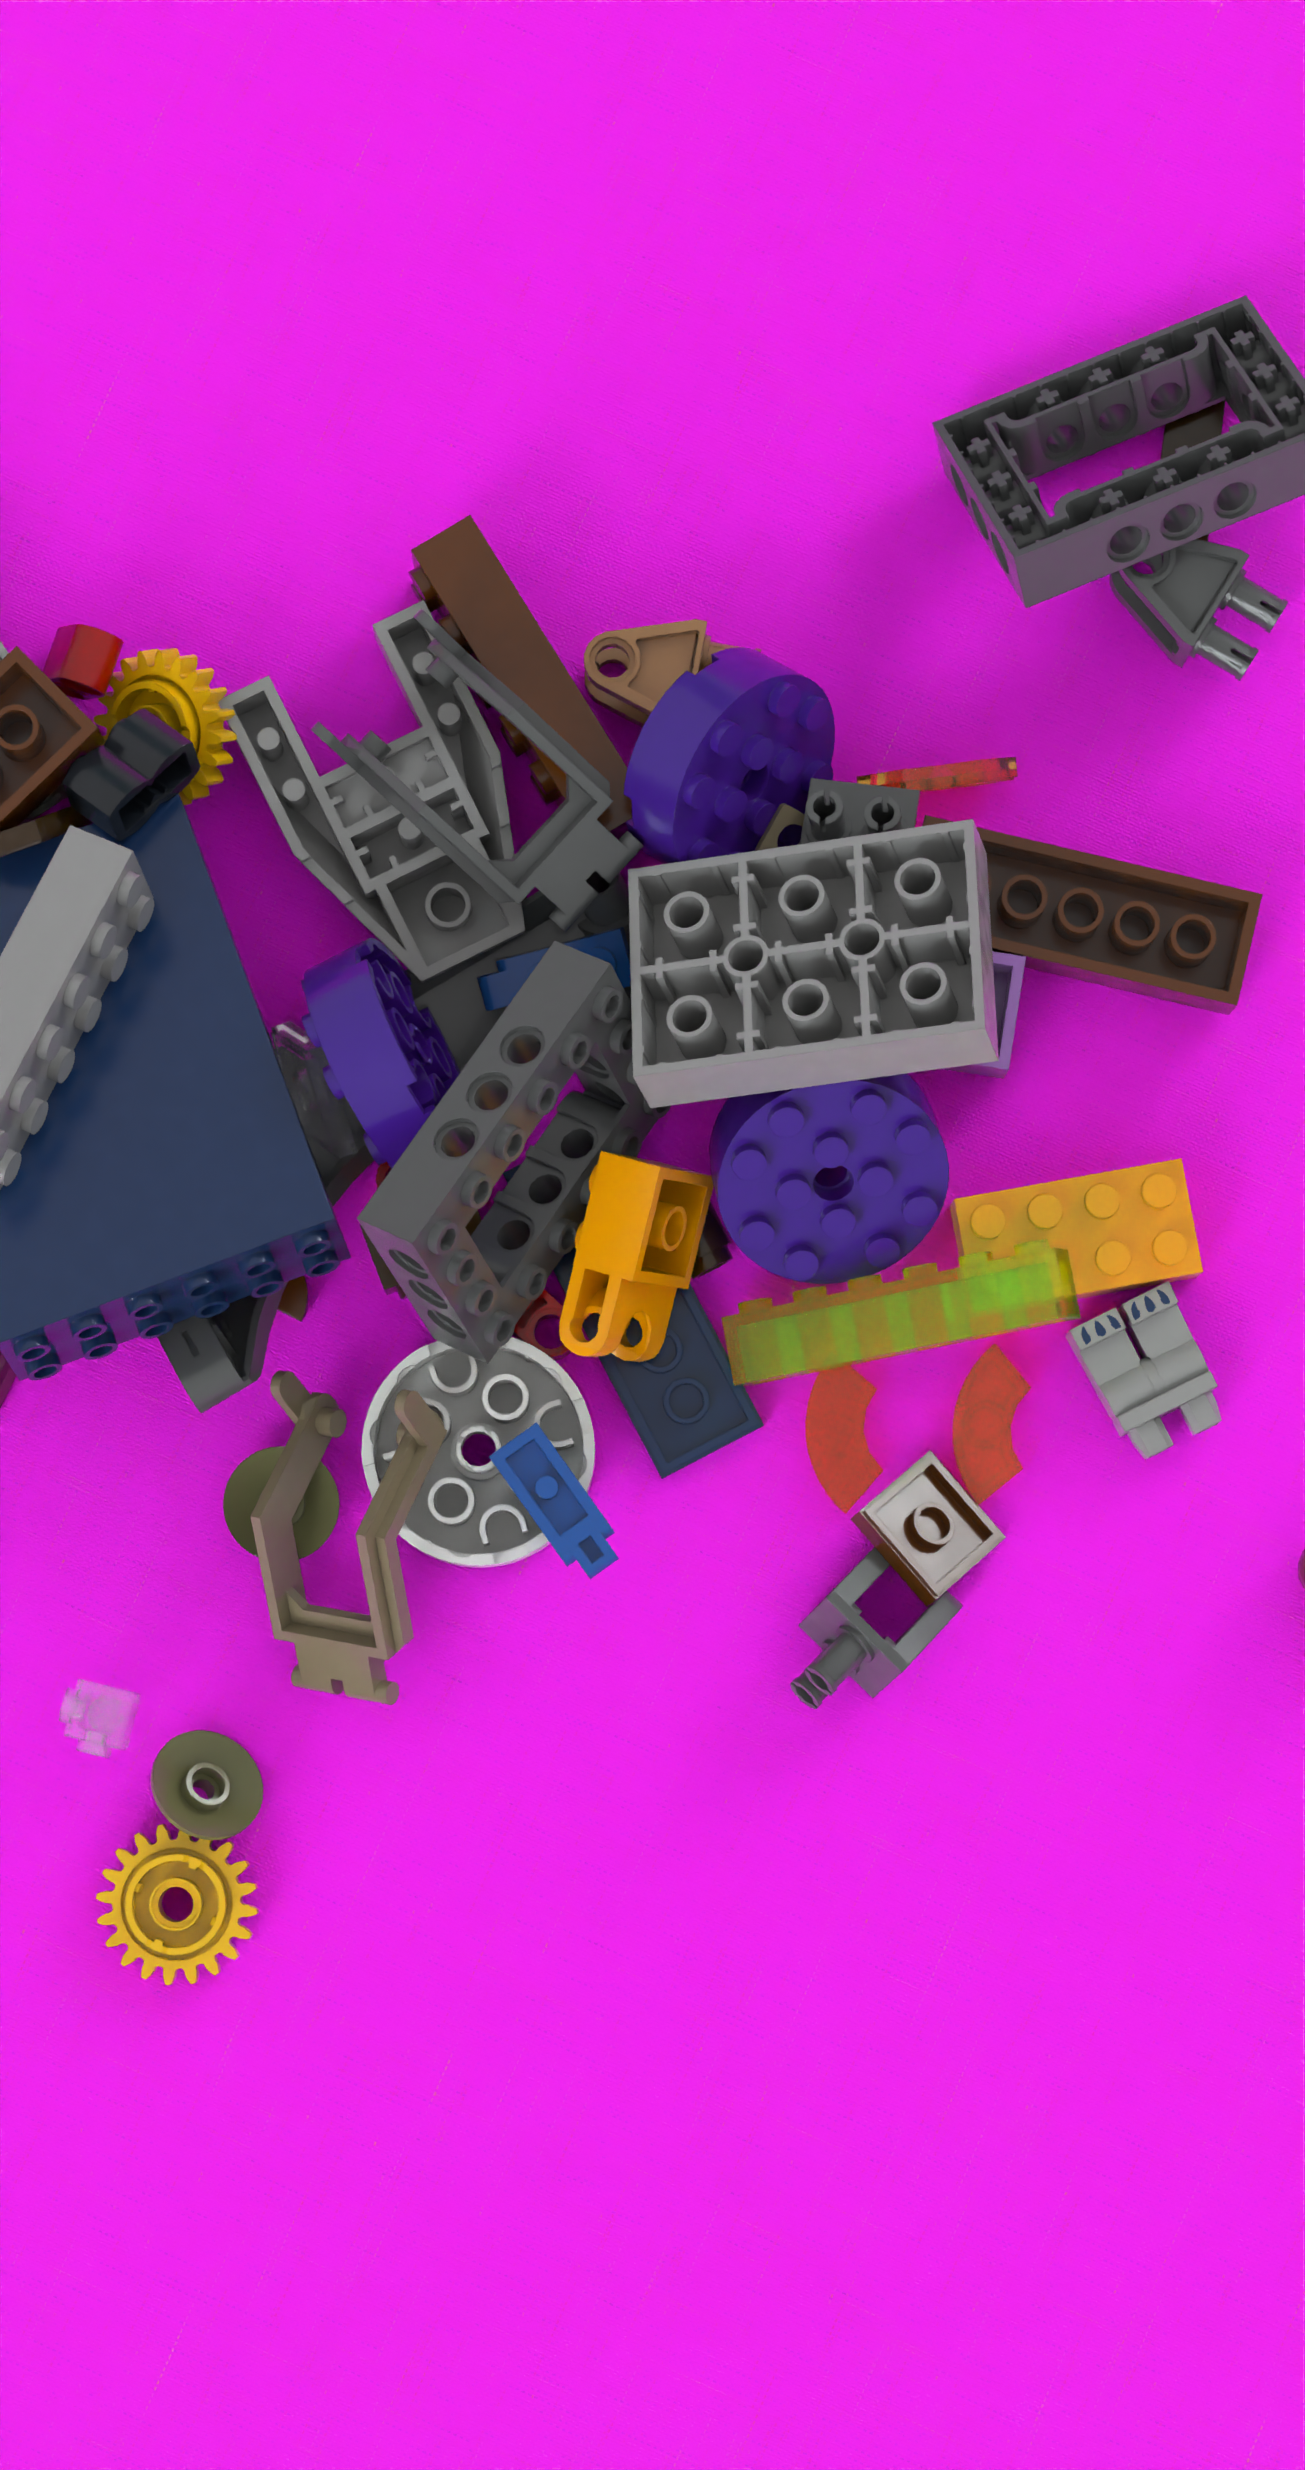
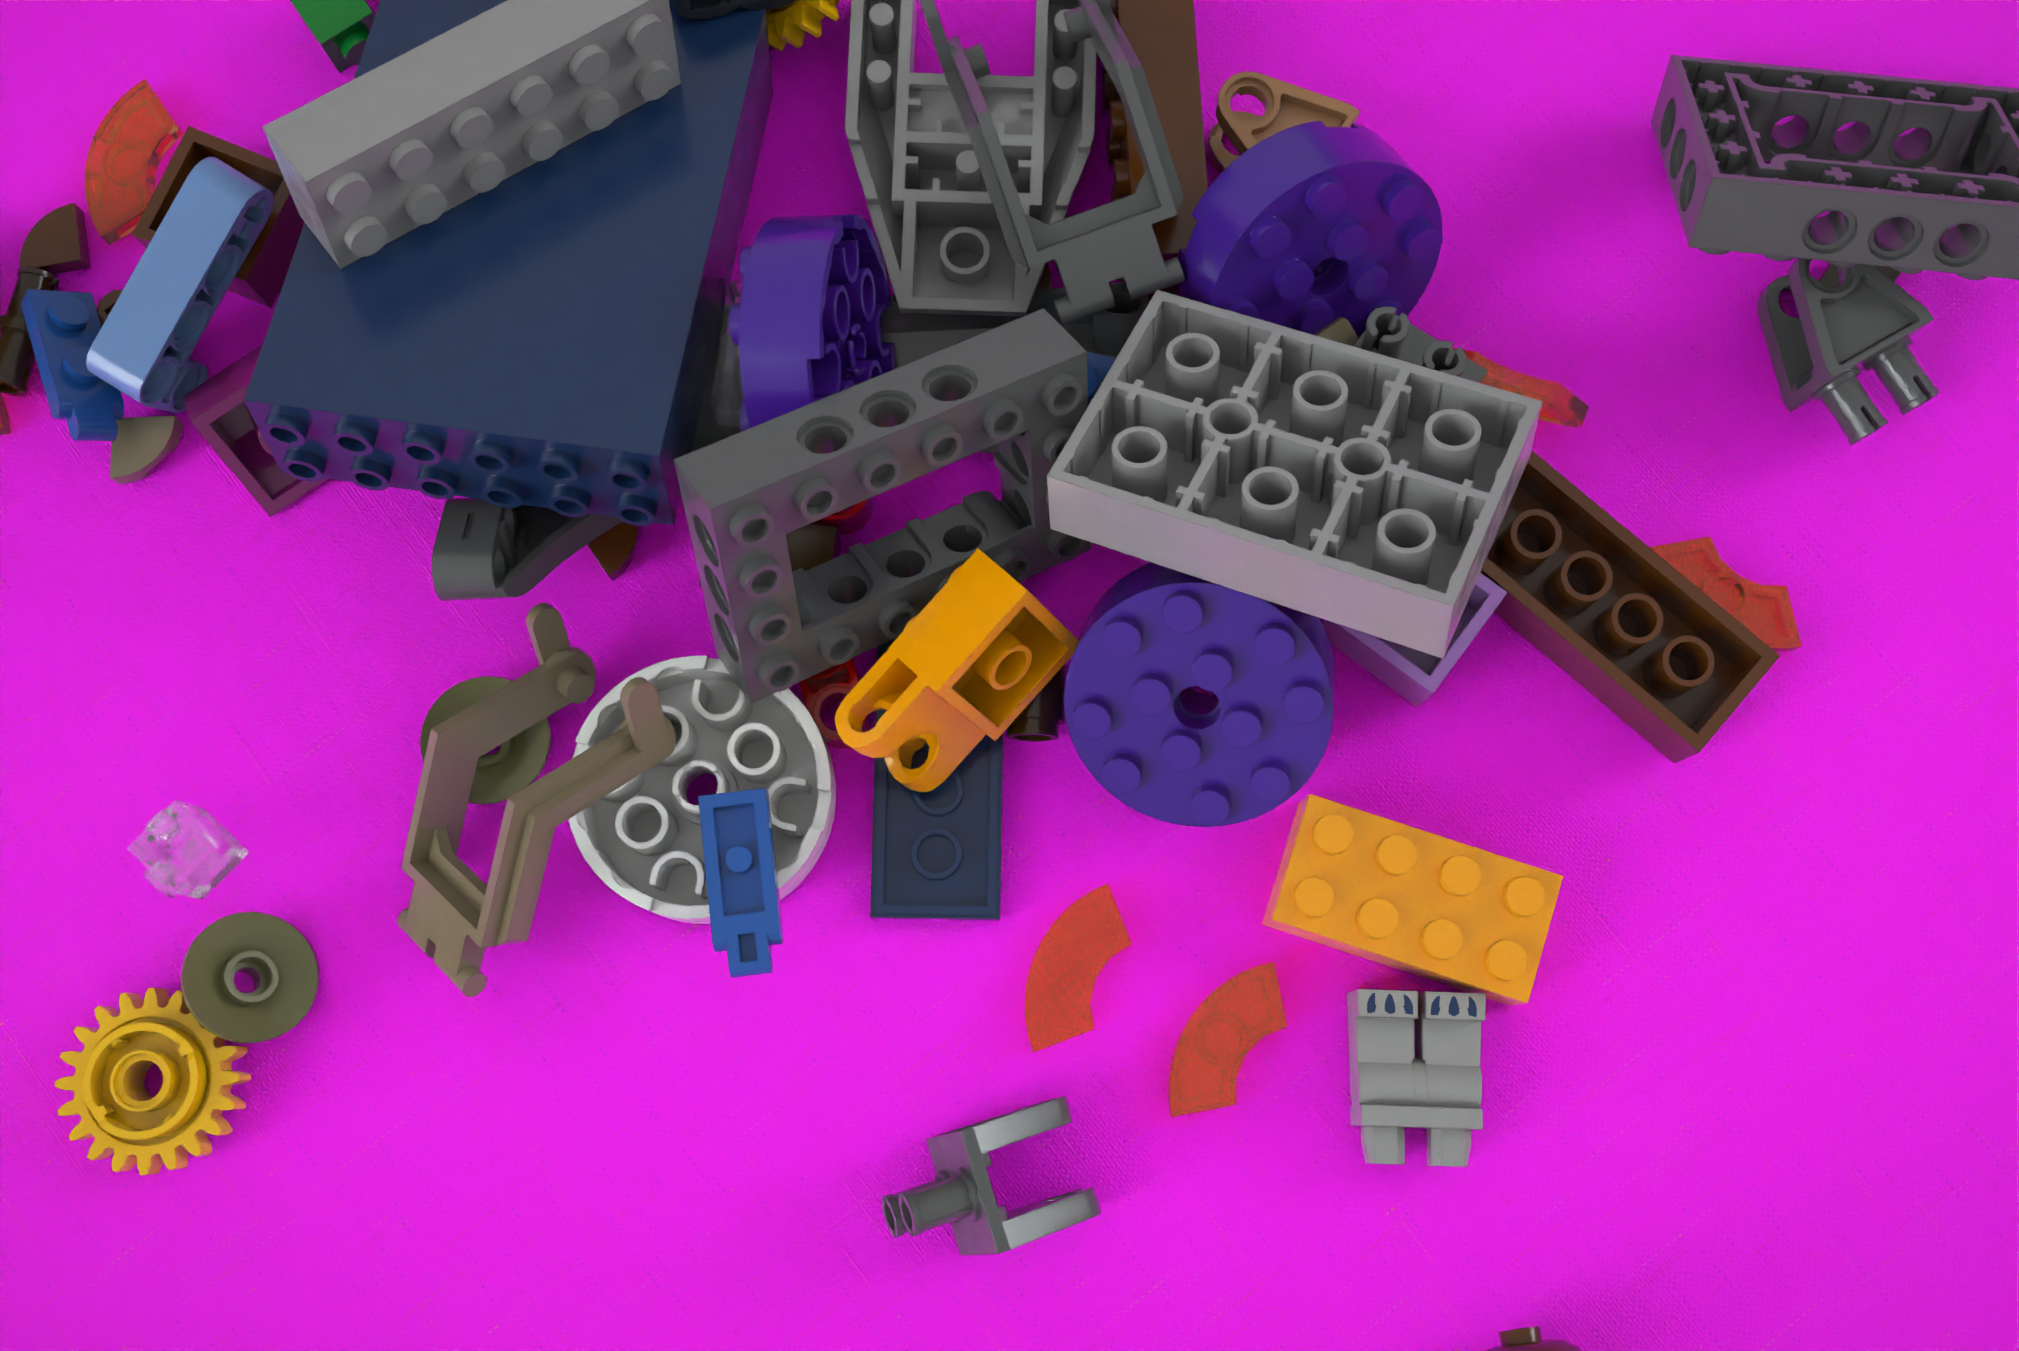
camera: 30 degrees right, 5 degrees down
(901, 1315) = (1199, 883): clear neon green brick -> none
(928, 1528) = (1107, 1114): tile -> none
(1224, 858) = (1758, 607): none -> clear orange tile

